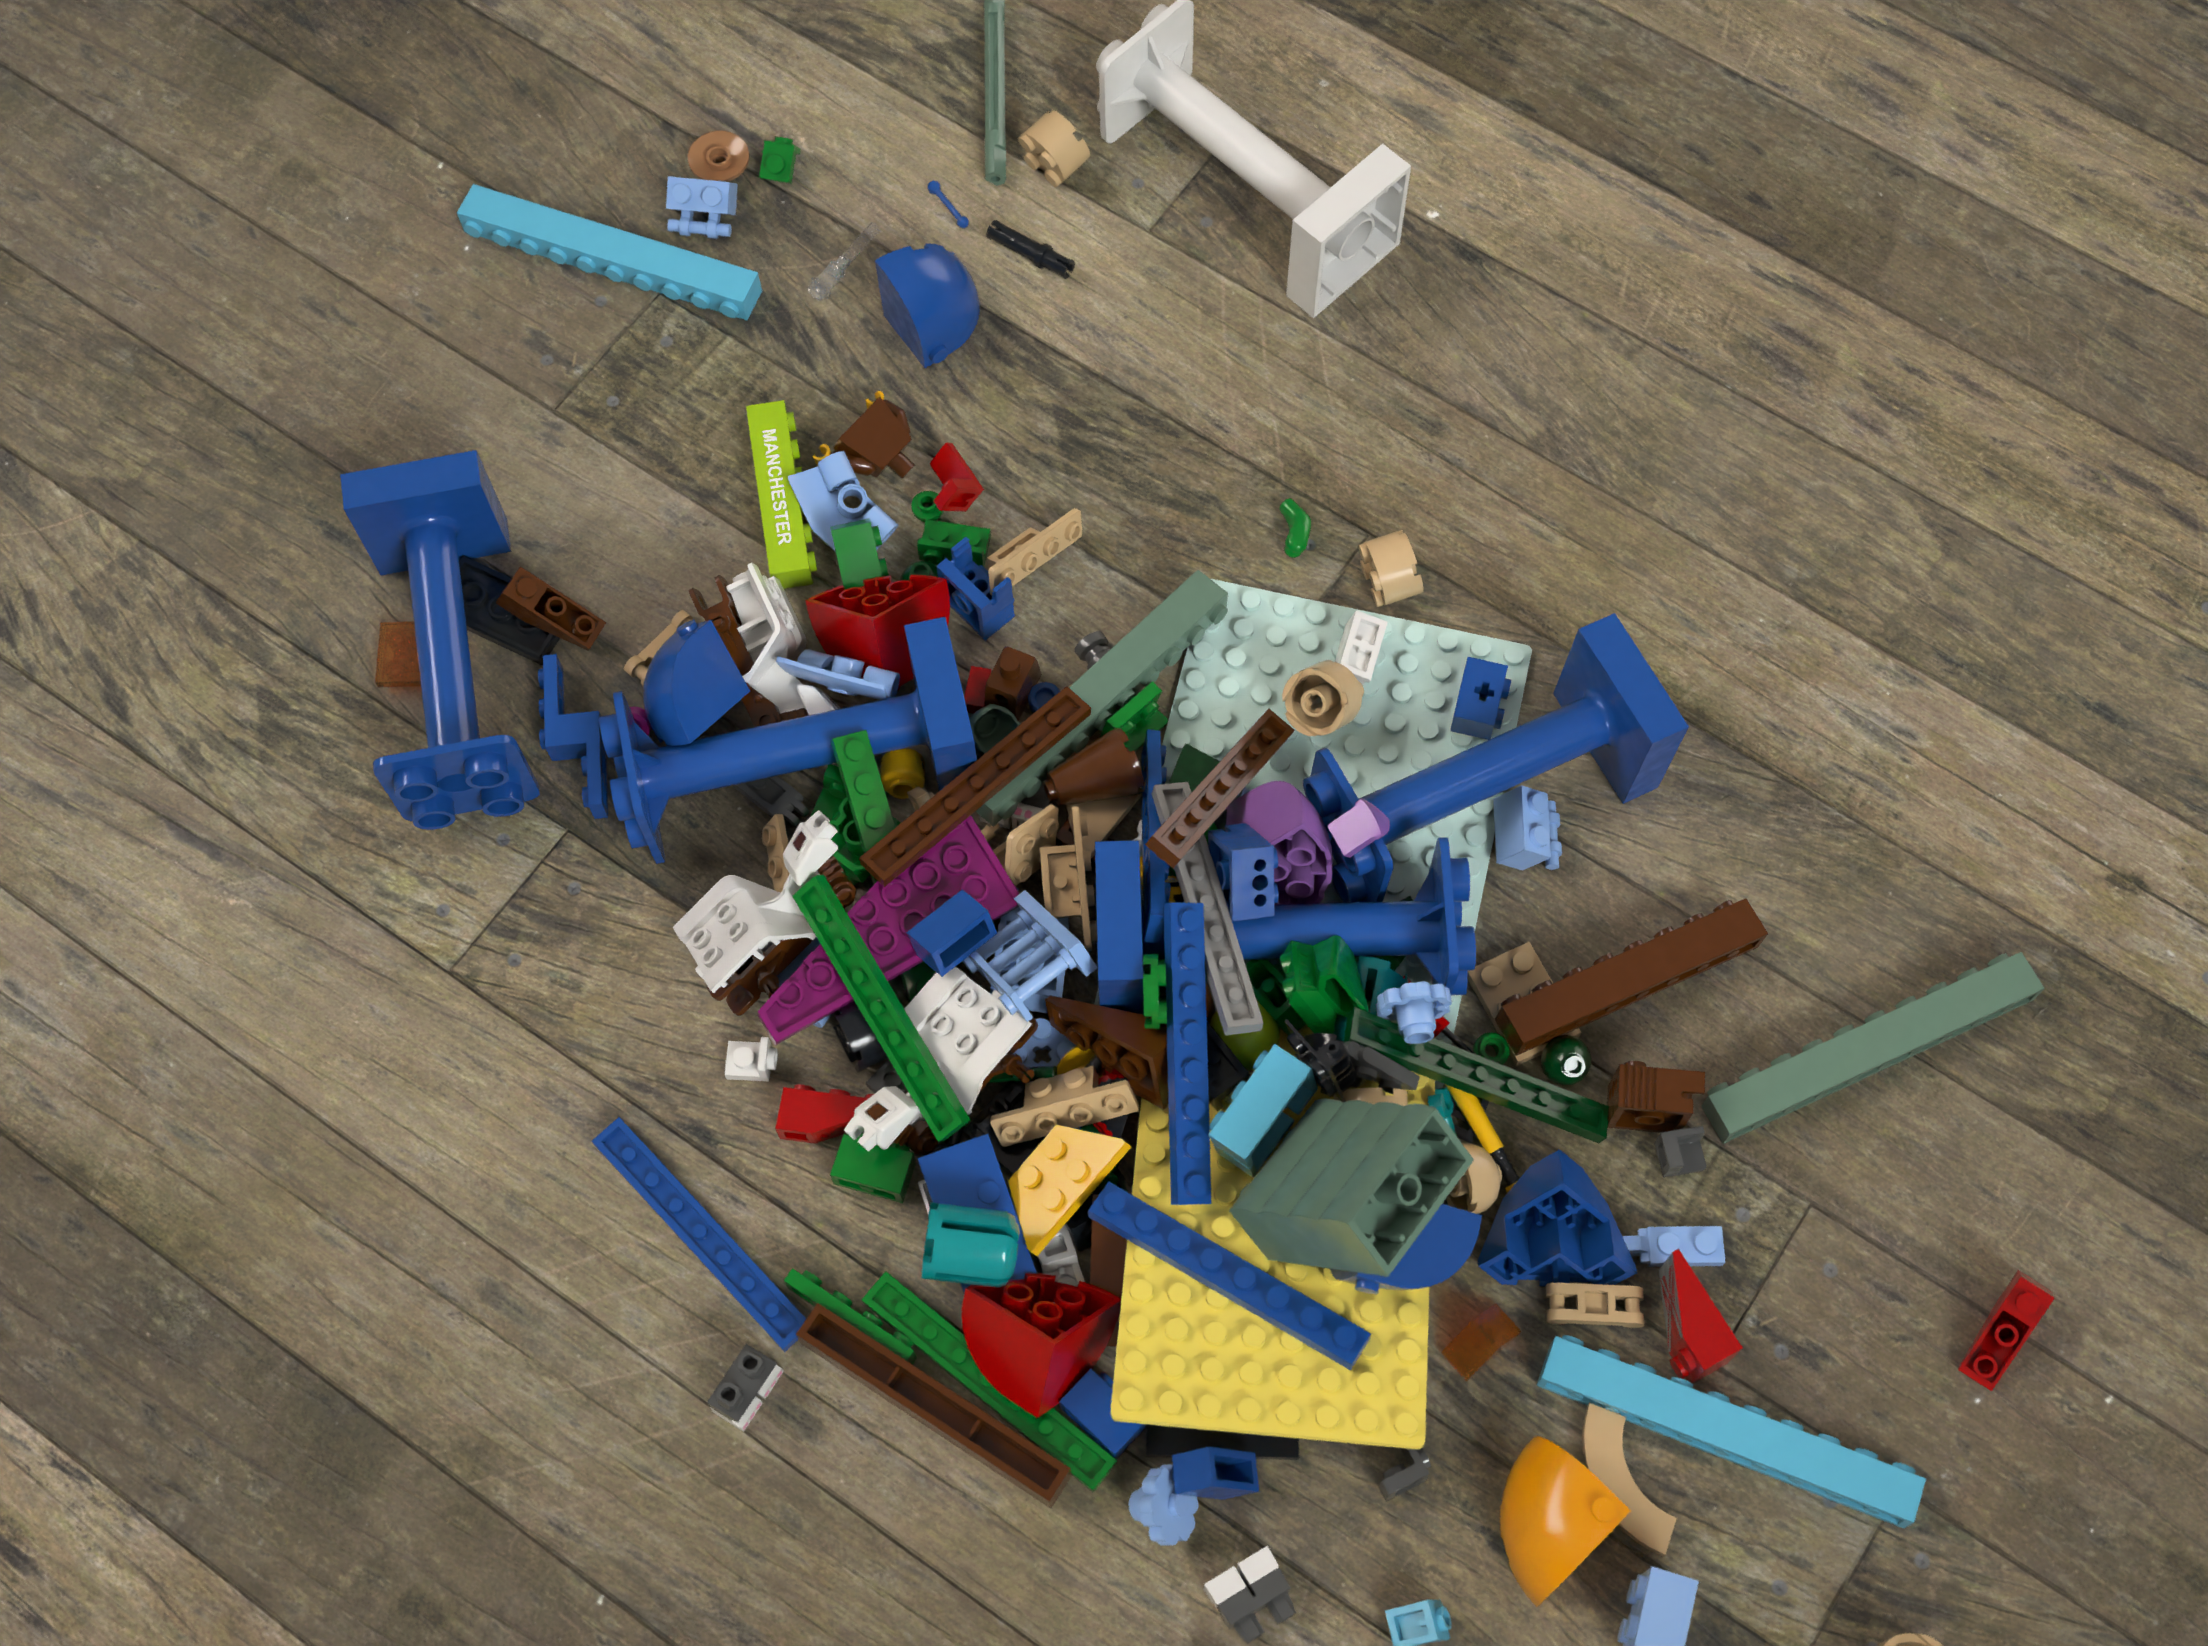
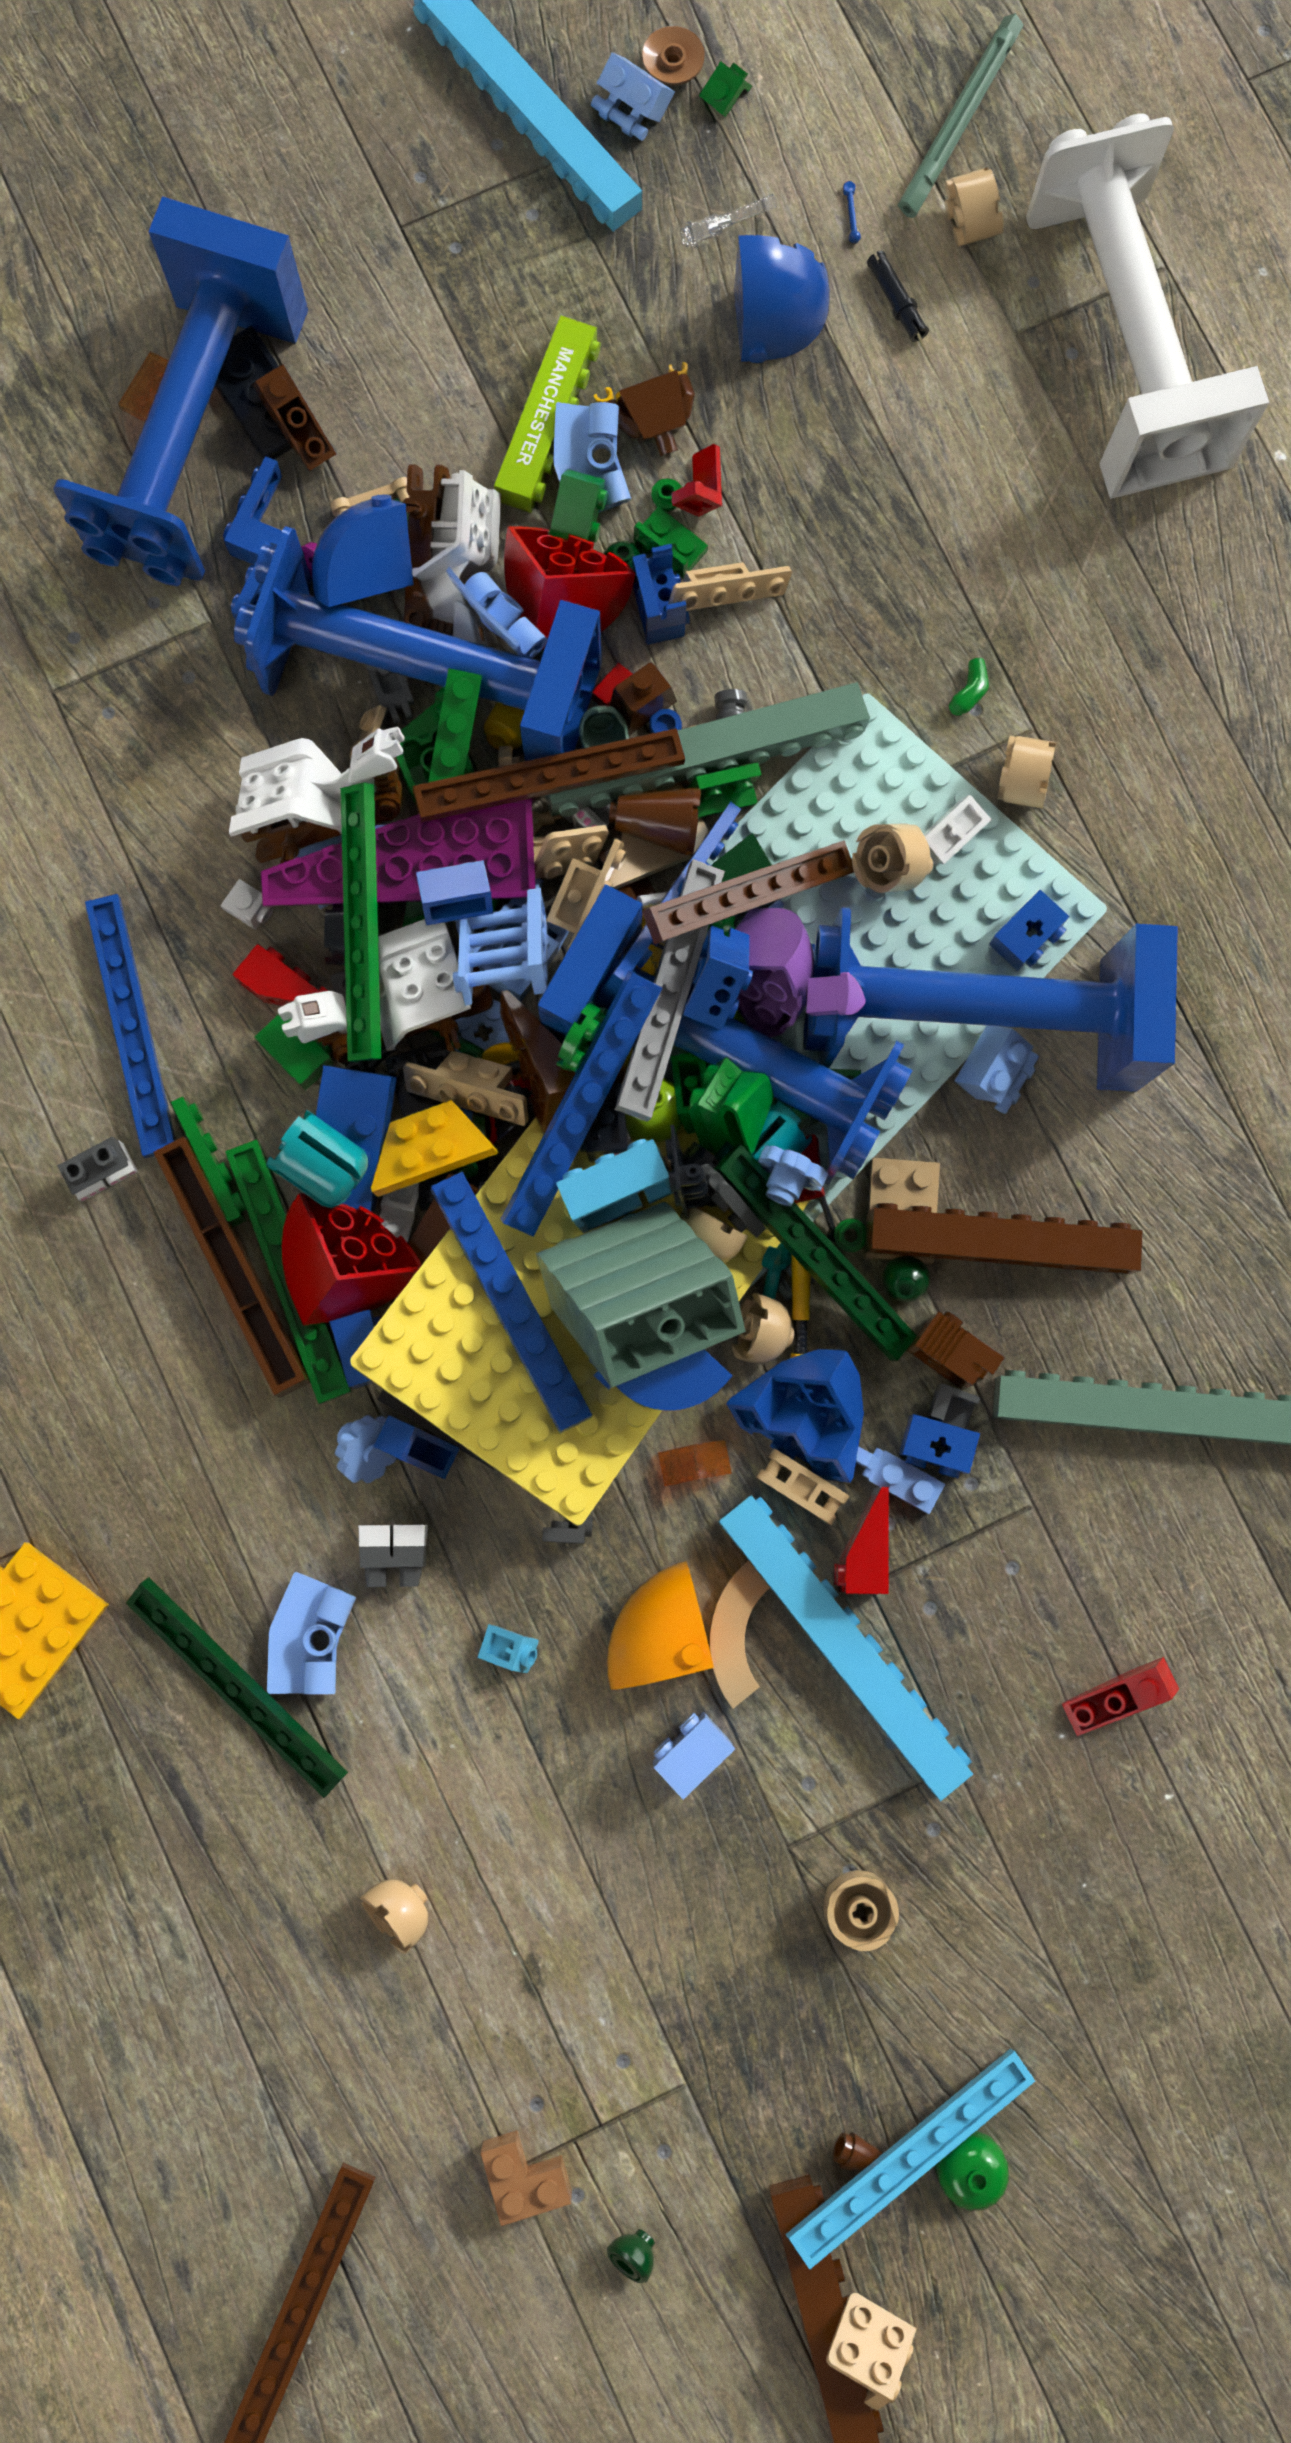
camera: 25 degrees right, 15 degrees up
(1708, 1180) = (959, 1446): none -> blue brick

